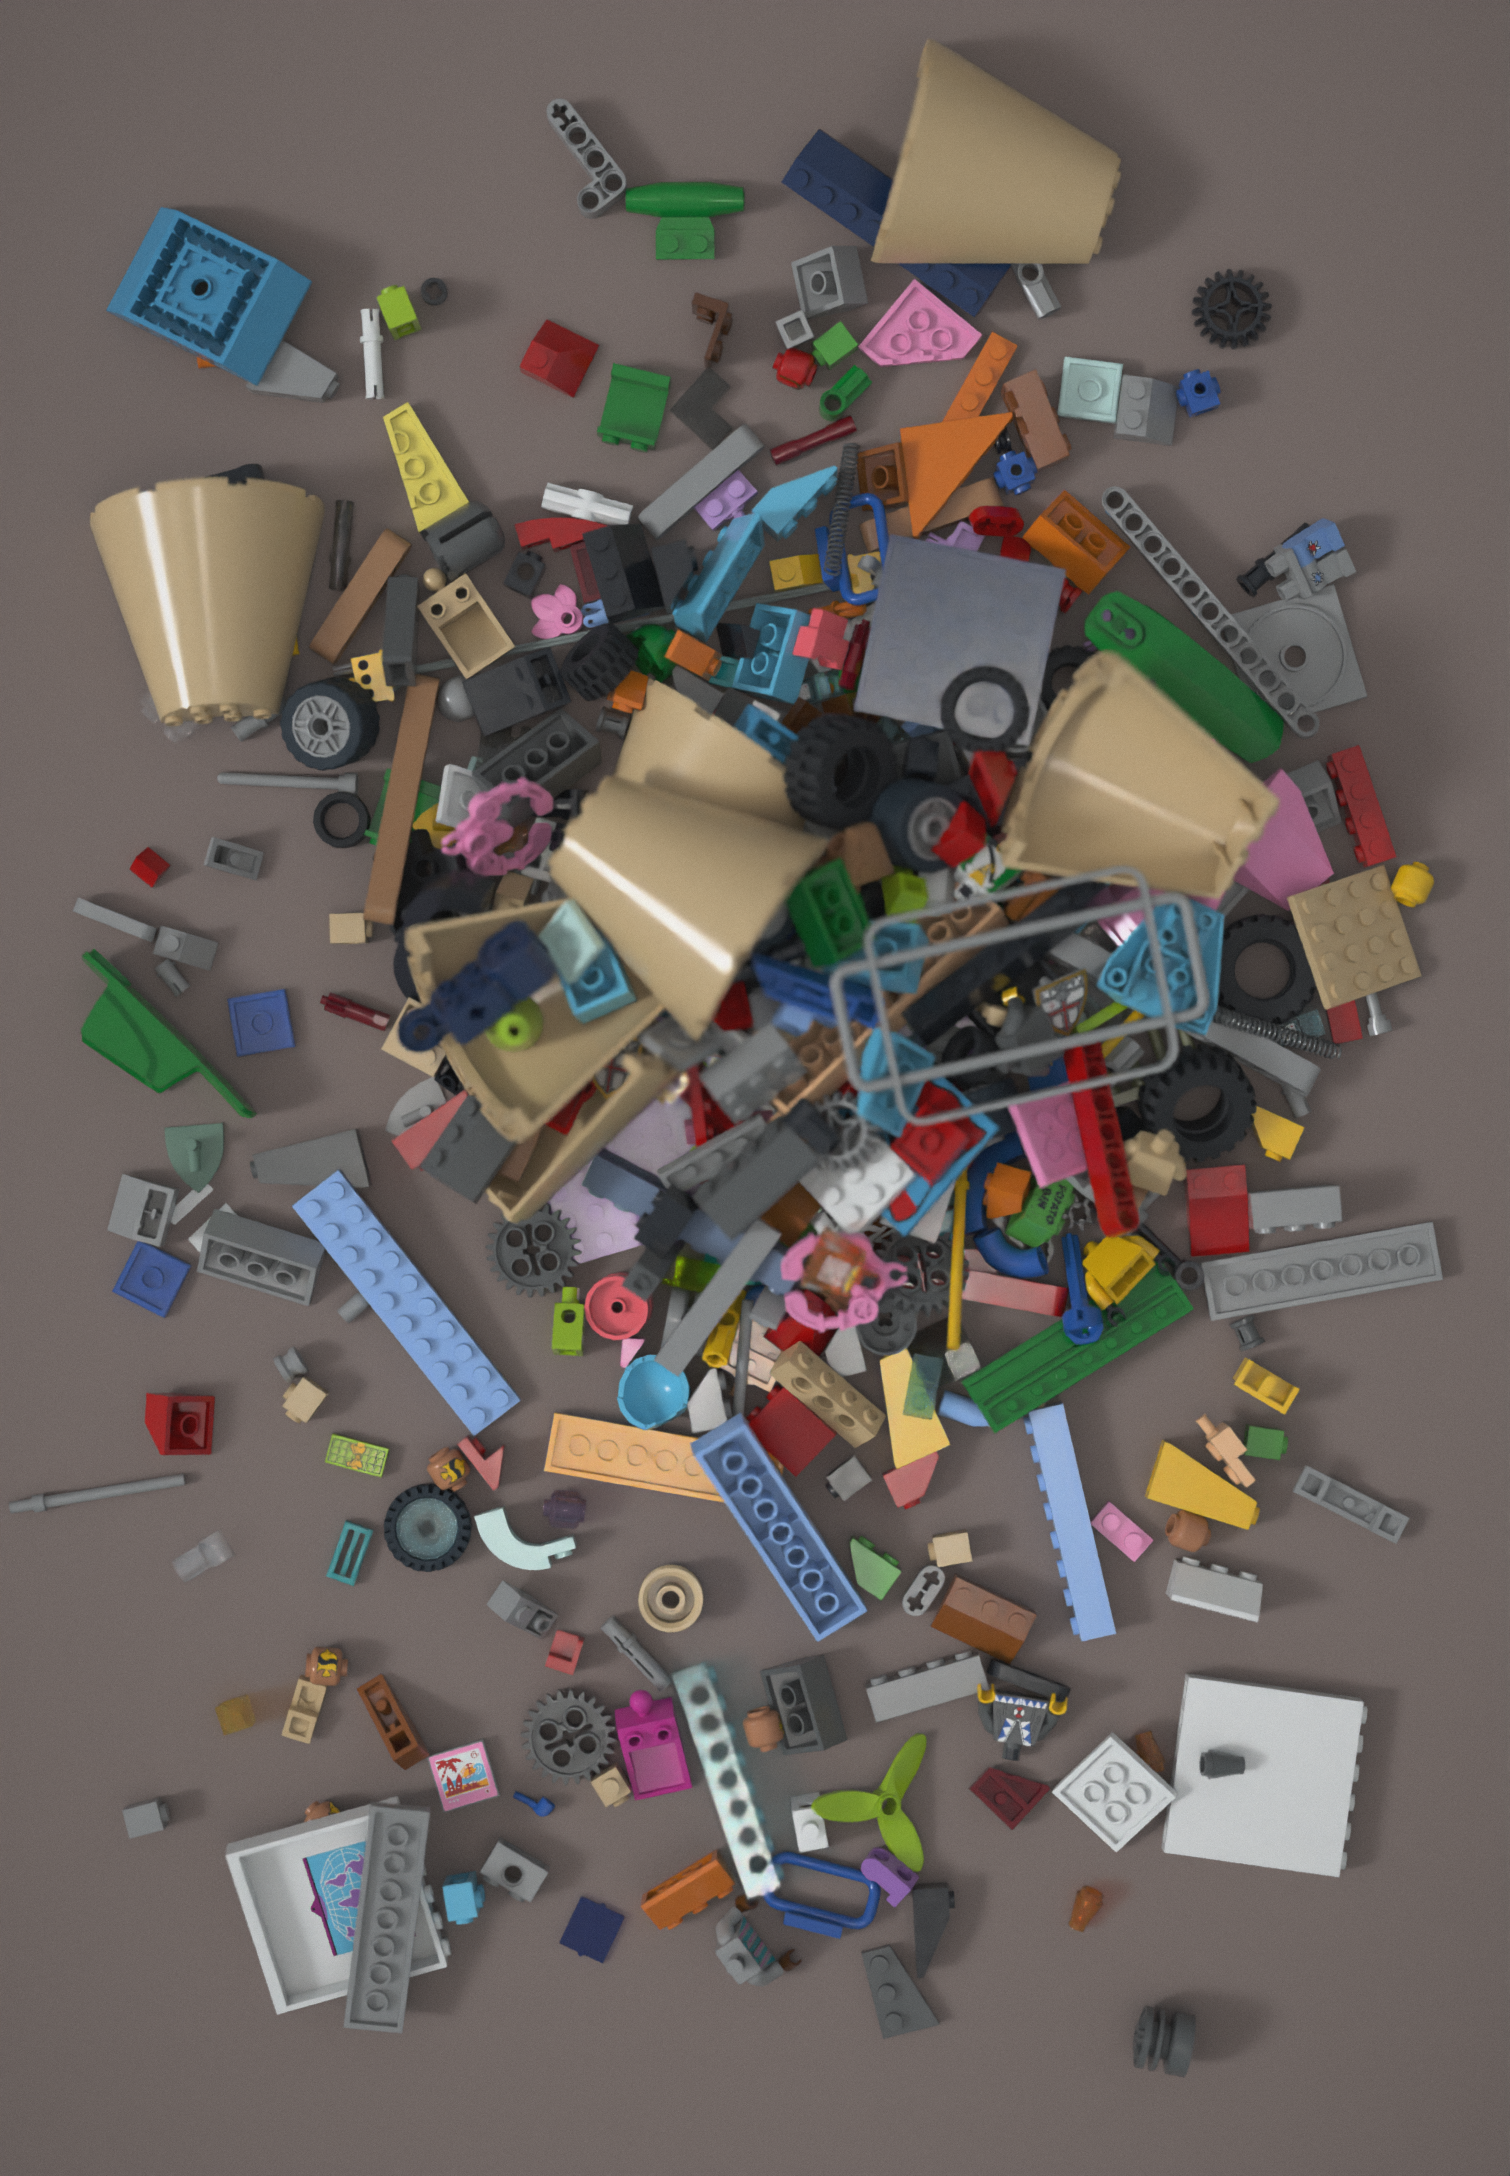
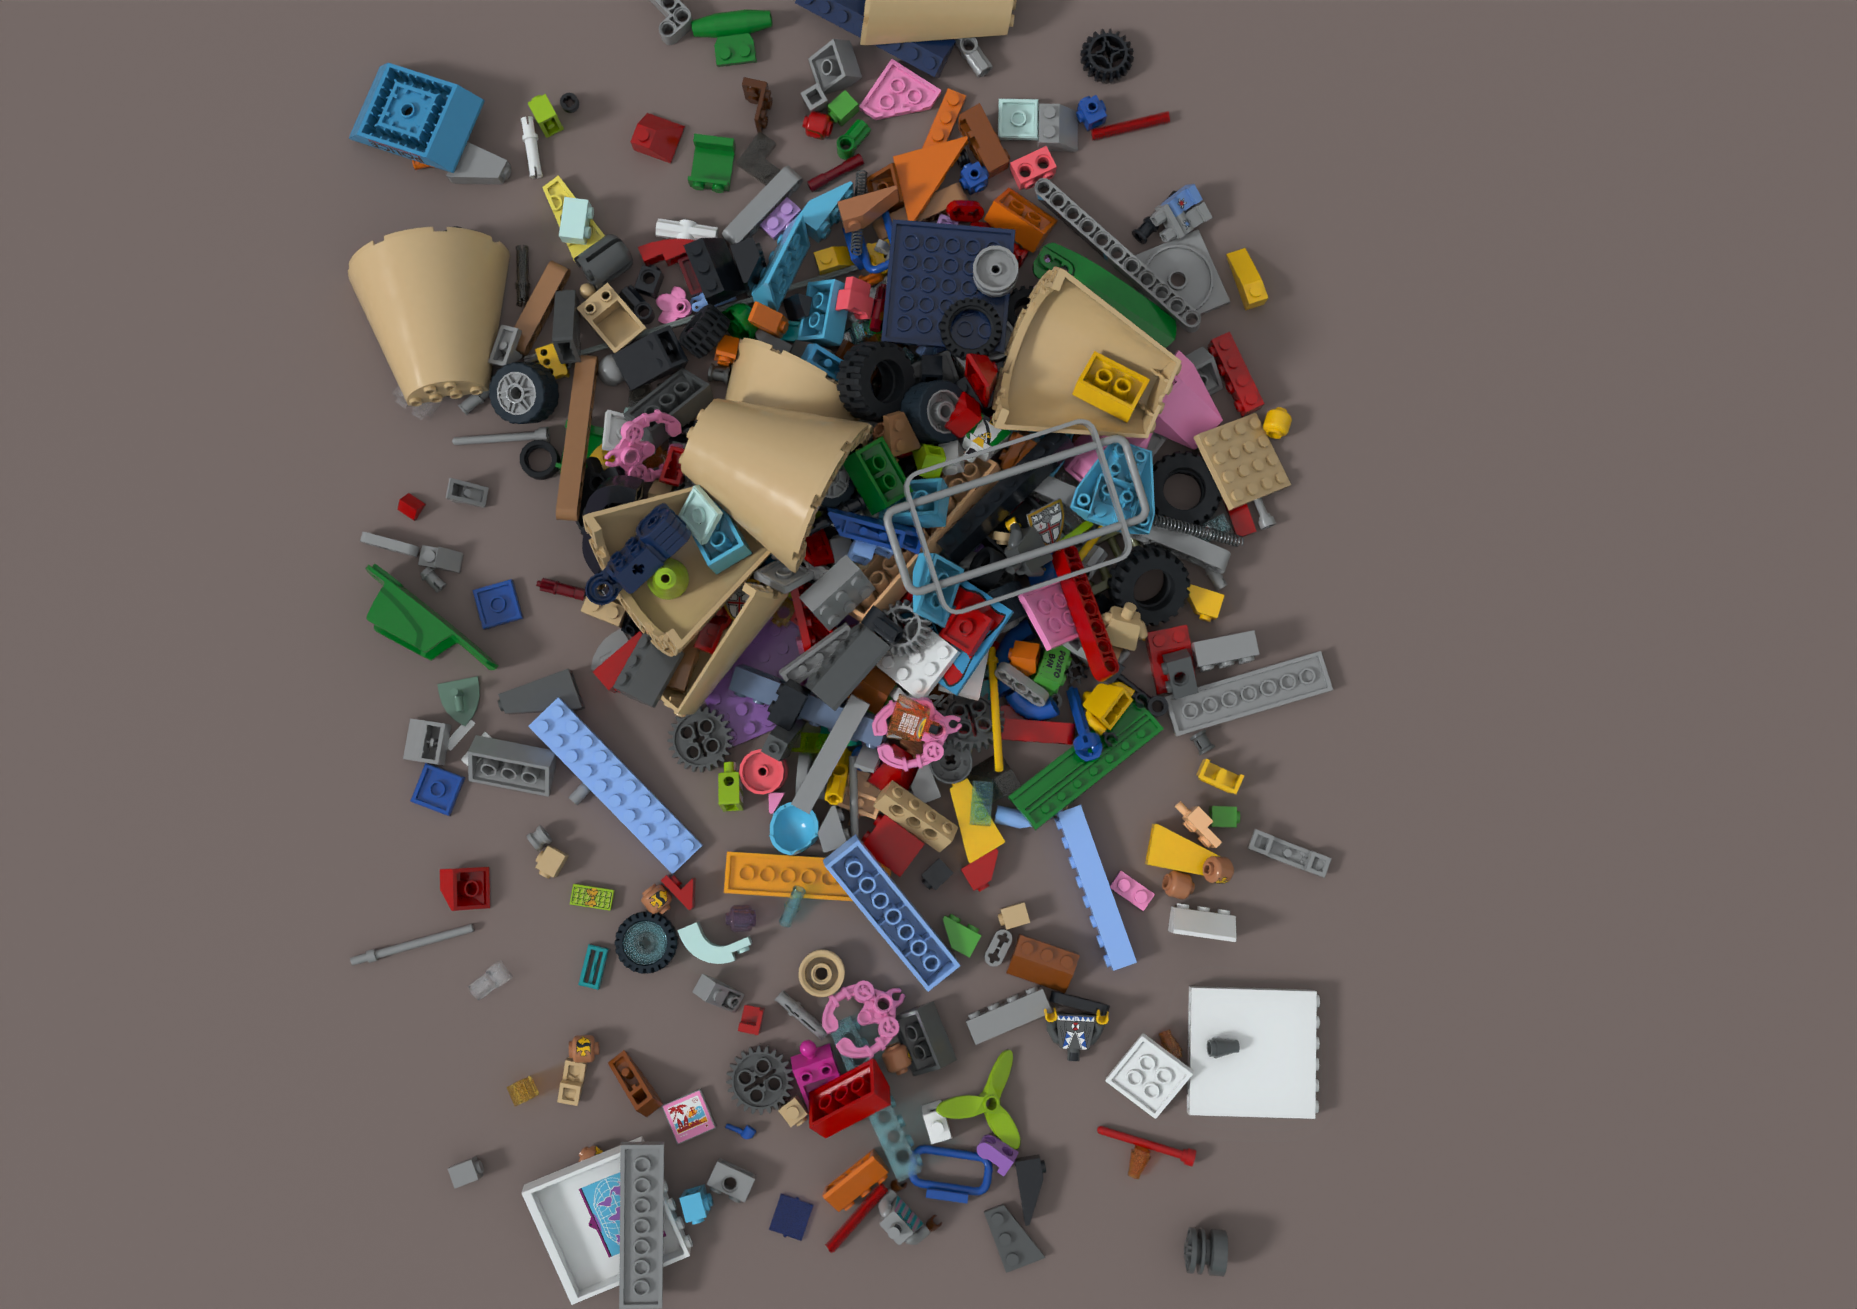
camera: 10 degrees left, 5 degrees down
(308, 655) = (505, 346): none -> light grey slope
(349, 928) = (552, 532): tan brick -> none
(428, 476) = (575, 221): none -> light aqua brick
(502, 605) = (637, 304): none -> black piece
(534, 868) = (671, 471): none -> red slope
(639, 1500) = (792, 906): none -> clear light blue pin
(687, 1938) = (856, 1218): none -> red axle
(690, 1777) = (848, 1099): none -> red slope
(732, 1663) = (865, 993): none -> bright pink piece
(848, 511) = (864, 209): none -> nougat slope
(999, 1225) = (1021, 684): none -> light grey beam
(1007, 1795) = (1074, 1086): dark red wing -> none
(1042, 618) = (997, 259): none -> light grey wheel
(1100, 461) = (1030, 164): none -> coral brick
(1153, 1908) = (1187, 1155): none -> red piece
(1175, 818) = (1110, 386): none -> yellow slope
(1228, 1249) = (1185, 683): none -> dark grey brick
(1245, 1518) = (1218, 869): none -> nougat head
(1254, 416) = (1133, 124): none -> red axle
(1395, 665) = (1247, 279): none -> yellow slope

